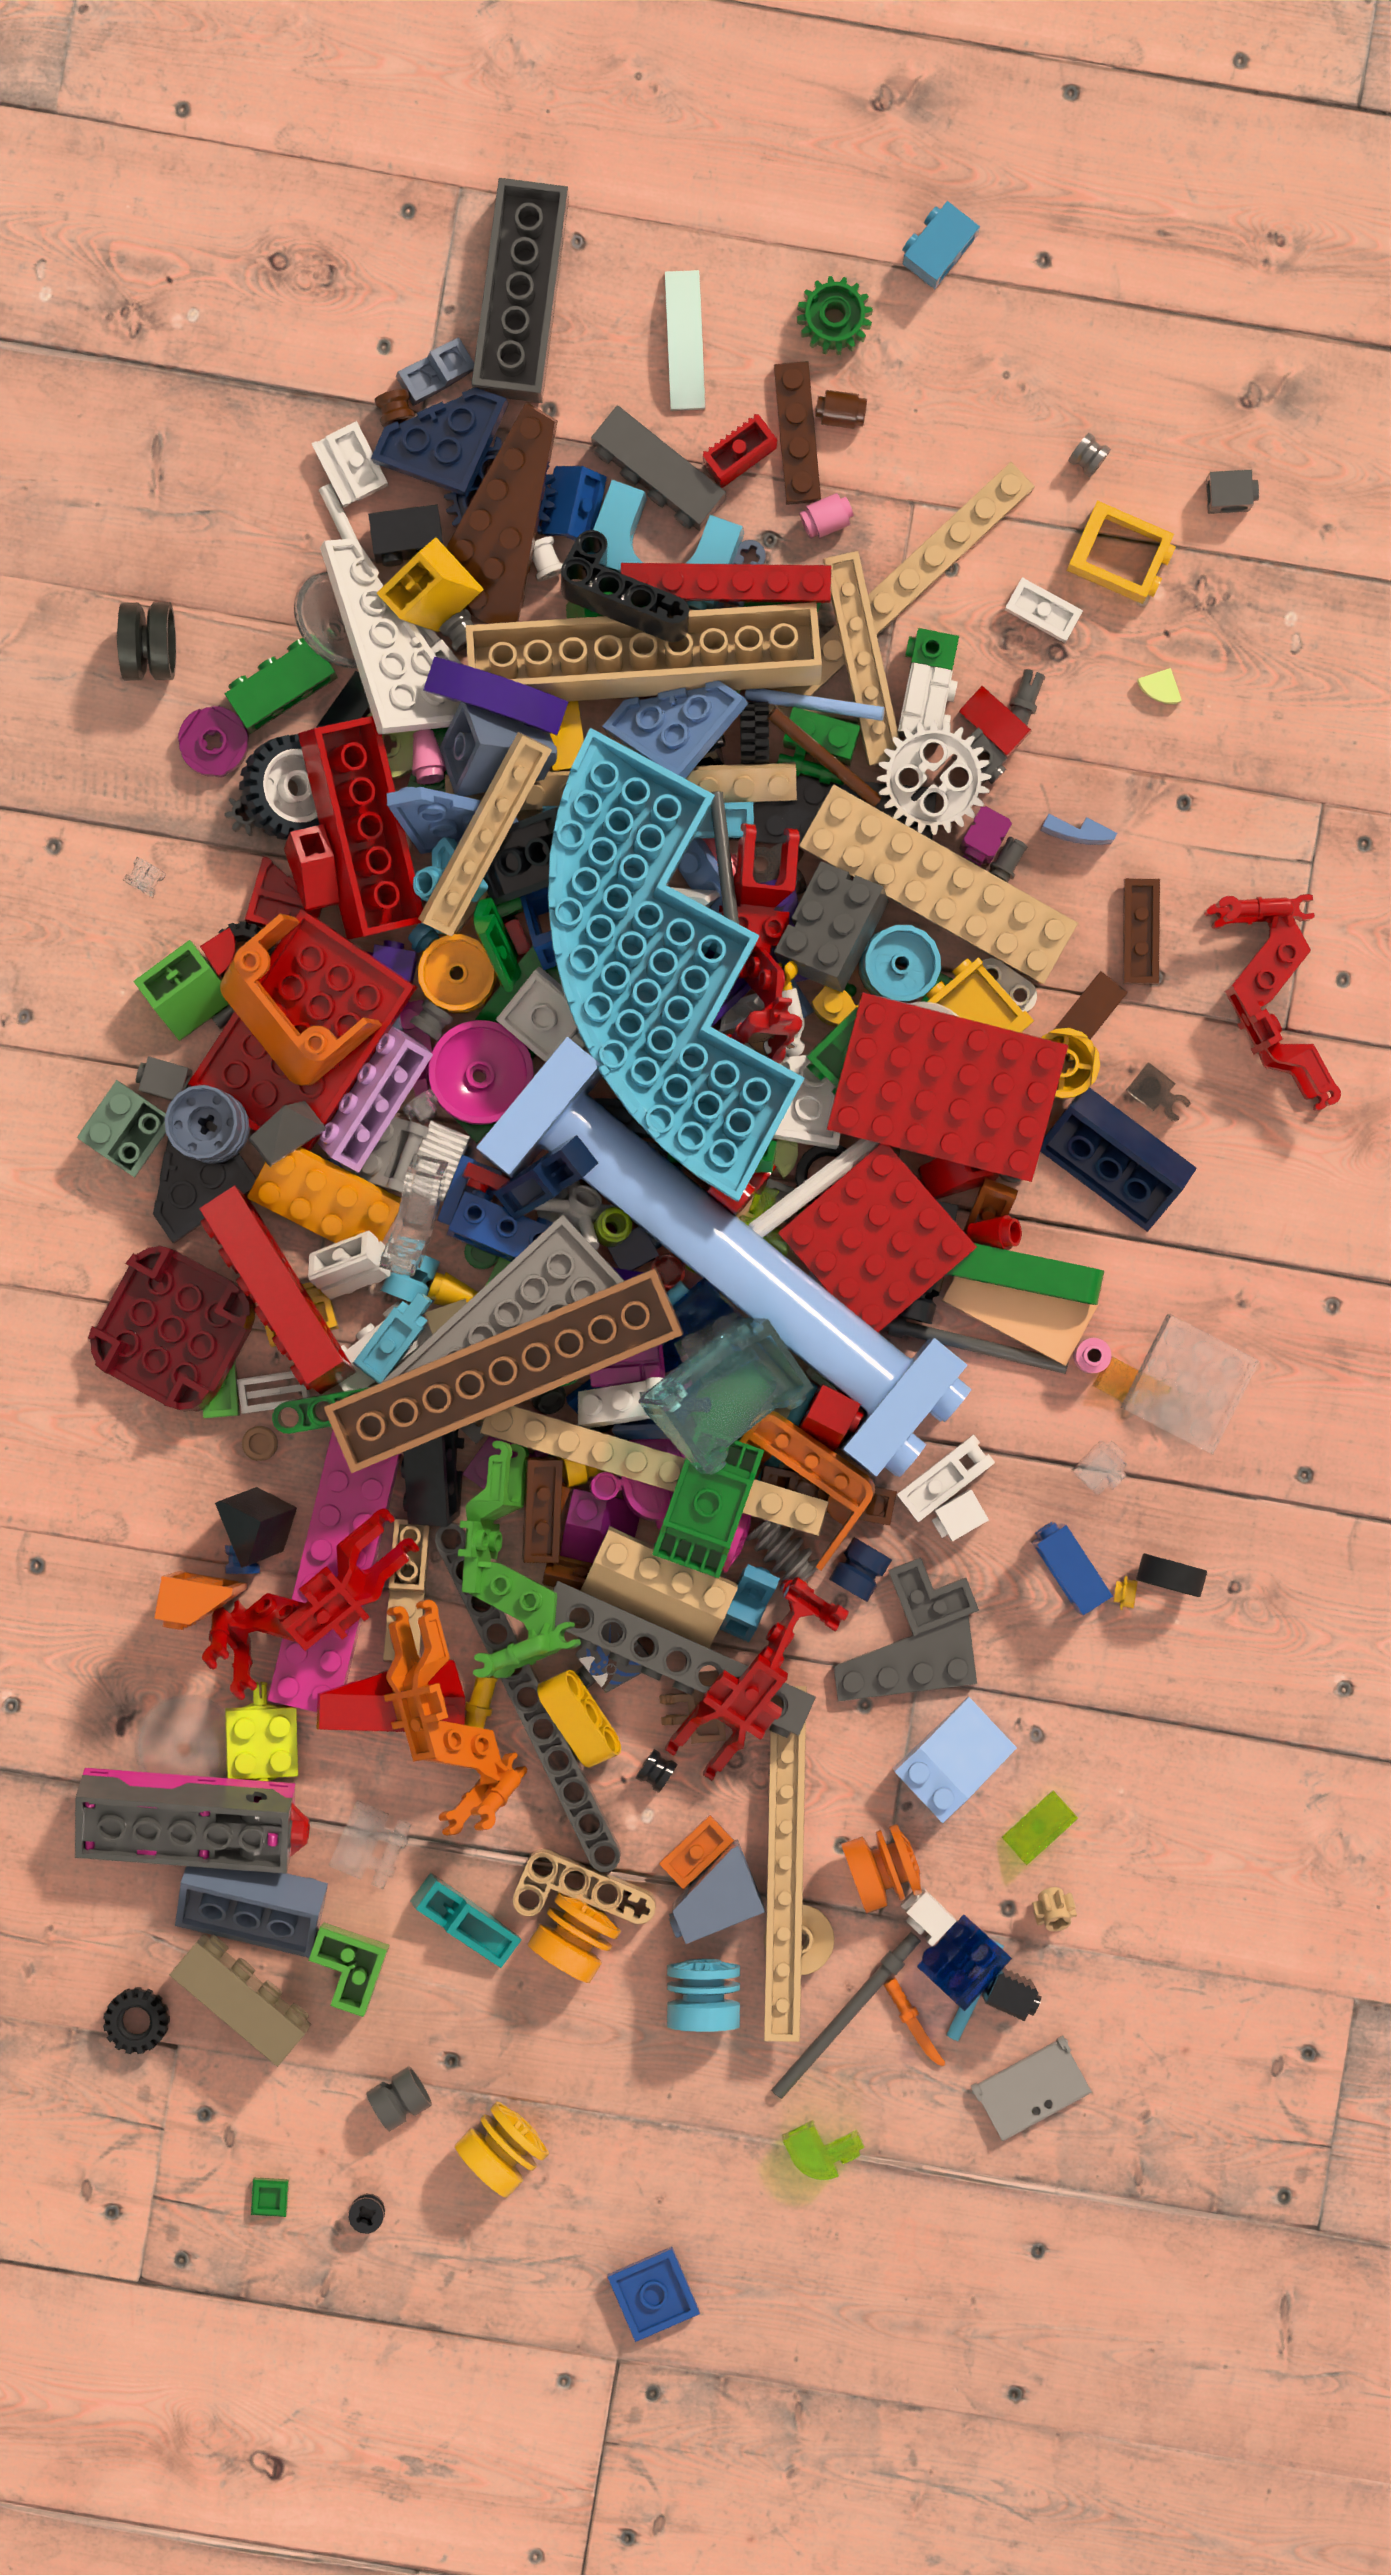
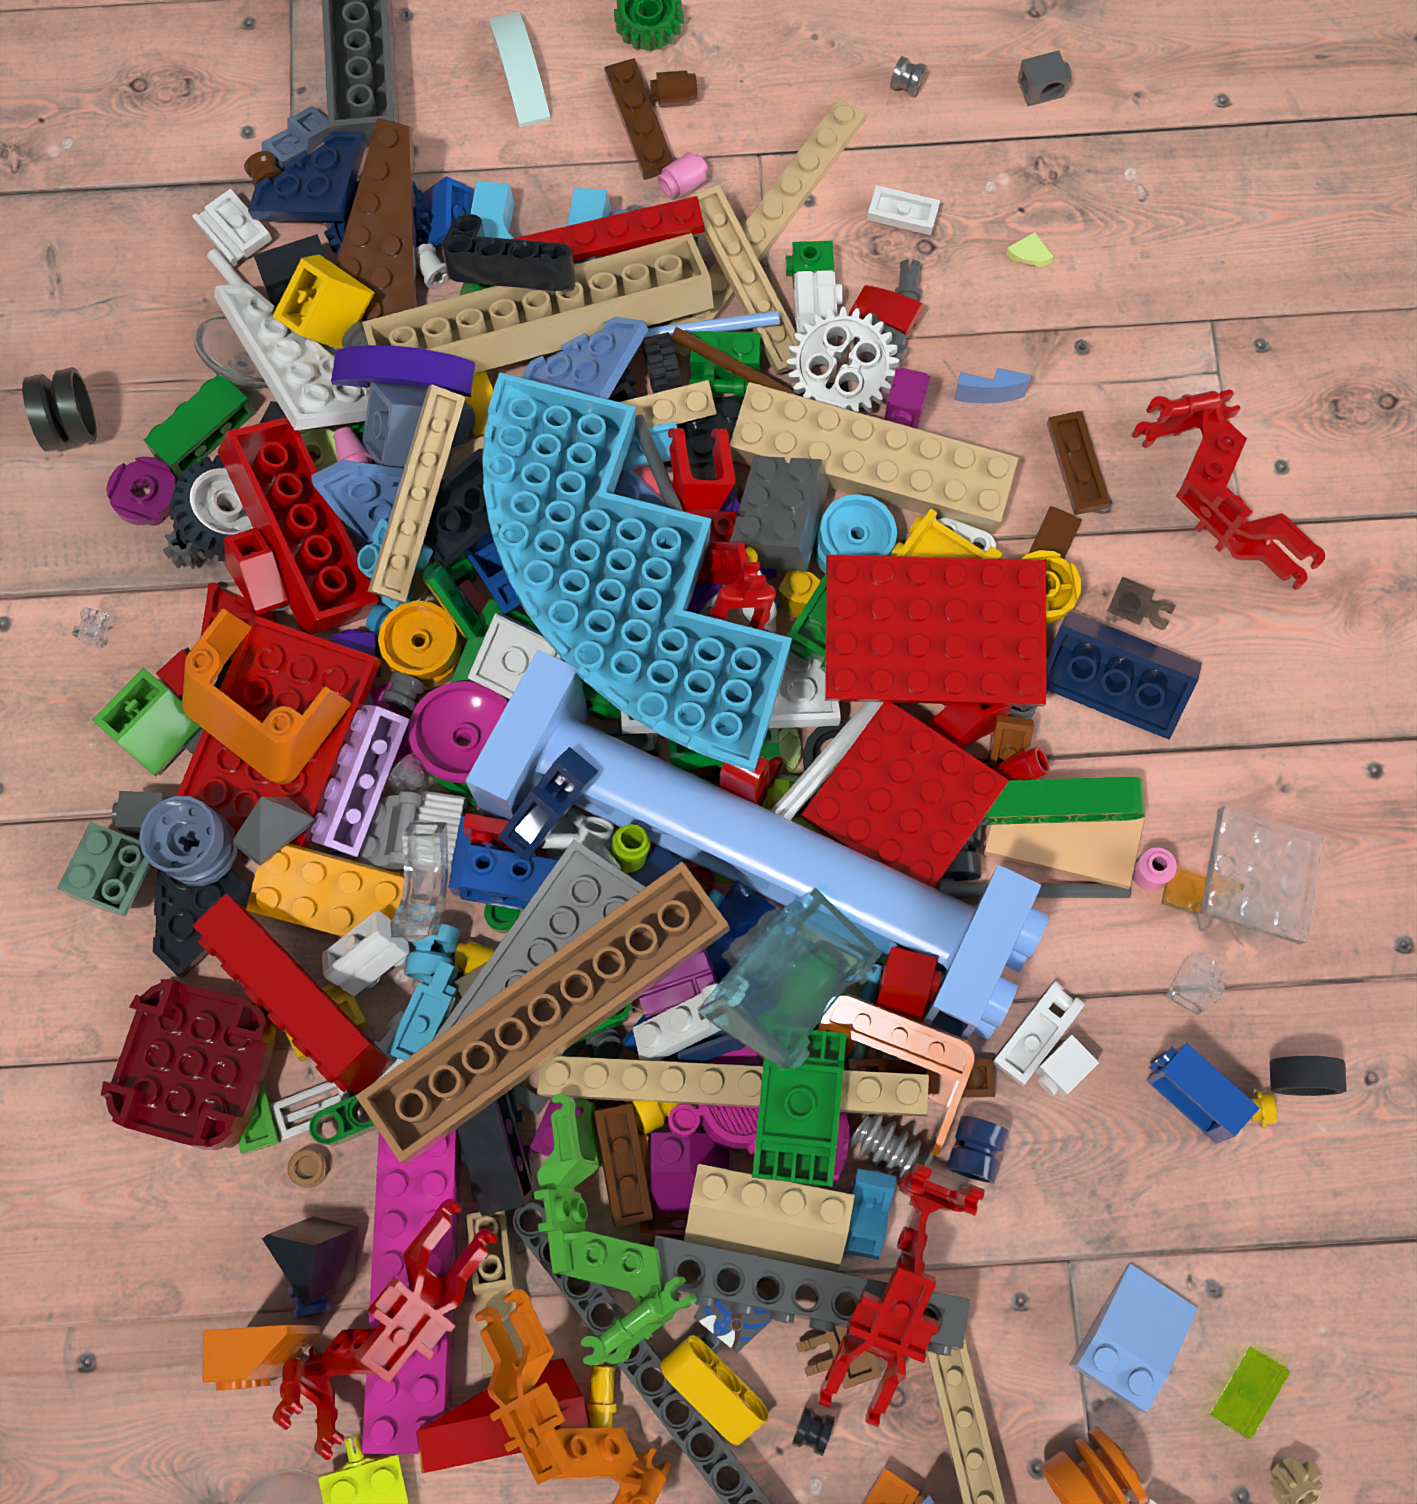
camera: 10 degrees left, 15 degrees down
(657, 468) = (529, 171): dark grey brick -> none
(739, 451) = (589, 135): red brick -> none
(913, 1664) = (1064, 1239): dark grey wing -> none
(930, 1607) = (1056, 1173): dark grey plate -> none
(1008, 859) = (934, 419): dark grey pin -> none
(1107, 579) = (959, 171): yellow window -> none

